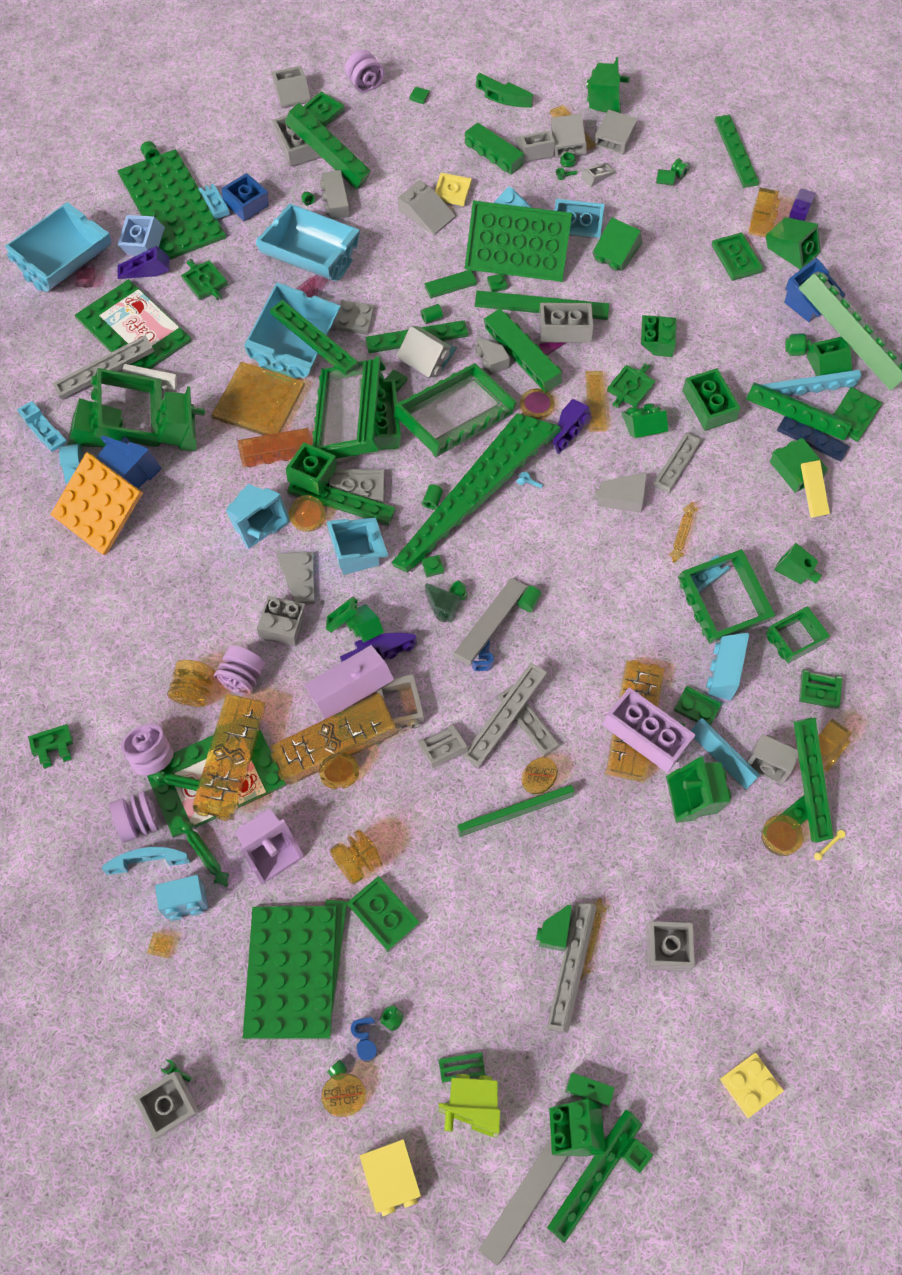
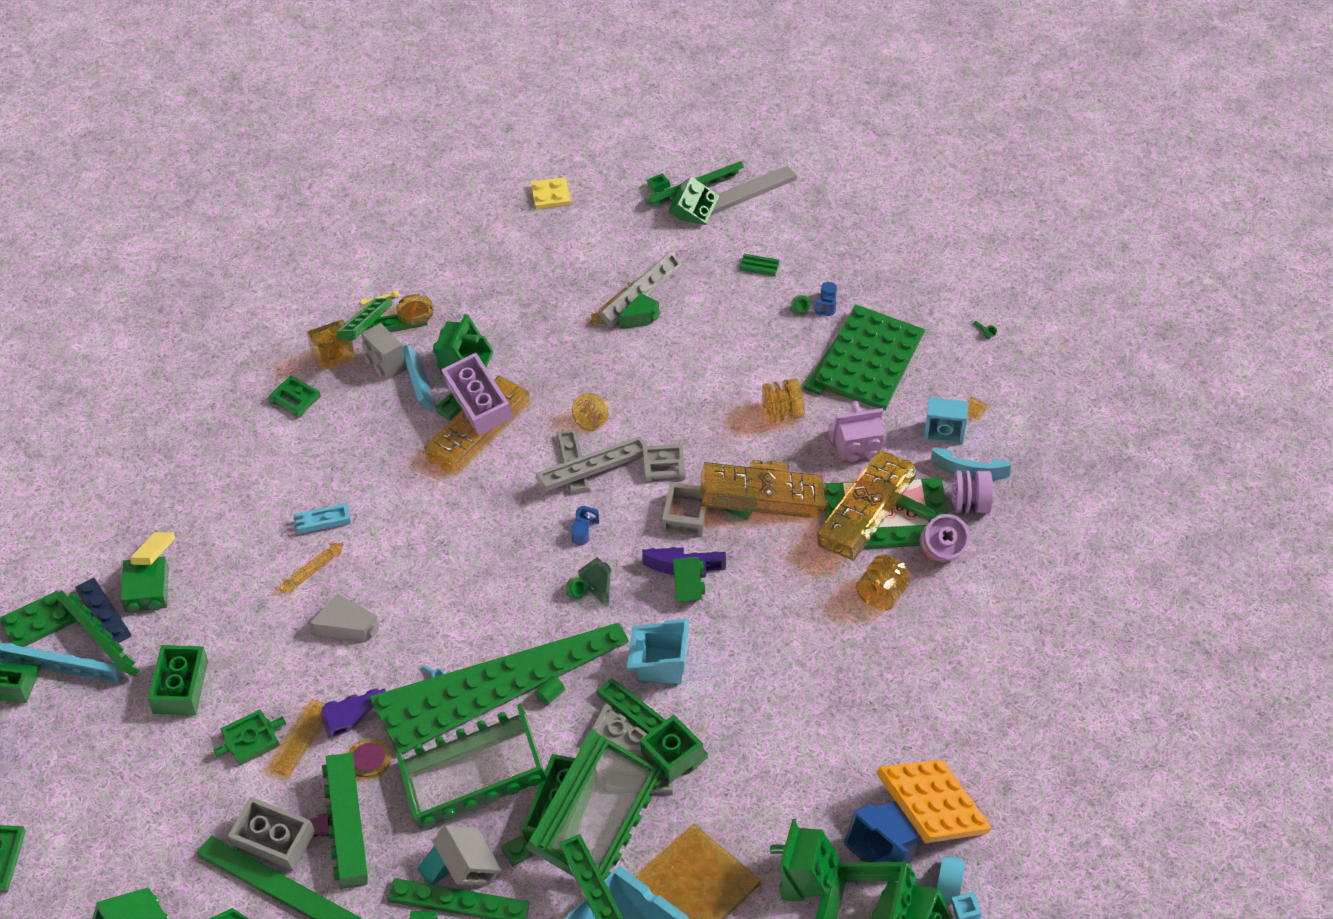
camera: 155 degrees left, 15 degrees down
(49, 741) = (1039, 591): green plate -> none
(166, 1105) = (997, 304): light grey brick -> none
(203, 852) = (916, 455): green wheel -> none
(239, 670) = (831, 578): lavender wheel -> none
(257, 514) = (753, 723): medium azure piece -> none
(272, 447) = (702, 809): clear orange brick -> none
(281, 621) = (772, 613): light grey slope -> none
(299, 574) = (731, 664): light grey wing -> none
(307, 513) = (698, 719): clear yellow tile -> none
(337, 1068) = (857, 290): green hinge -> none
(341, 614) = (693, 589): green tile -> none
(343, 1095) = (857, 272): clear yellow piece -> none
(349, 682) = (728, 529): lavender brick -> none
(383, 913) = (775, 363): green plate -> none
(390, 1177) = (842, 224): light yellow brick -> none
(432, 566) = (587, 622): green plate -> none
(473, 1103) = (764, 229): lime piece -> none
(489, 622) = (560, 542): light grey tile -> none
(493, 356) = (384, 829): light grey slope -> none
(515, 810) = (631, 395): green tile -> none
(529, 598) = (508, 556): green piece -> none
(599, 1093) = (666, 217): green piece -> none
(645, 420) = (265, 689): green slope -> none
(658, 335) = (172, 778): green slope -> none
(670, 946) = (557, 271): light grey brick -> none
(677, 462) = (263, 638): light grey tile -> none
(697, 706) = (413, 421): green plate -> none
(727, 665) = (363, 430): medium azure slope -> none
(750, 583) = (320, 511): green window -> none
(797, 344) = (27, 713): green head -> none
(798, 565) = (229, 482): green torso -> none
(811, 625) = (275, 427): green window -> none

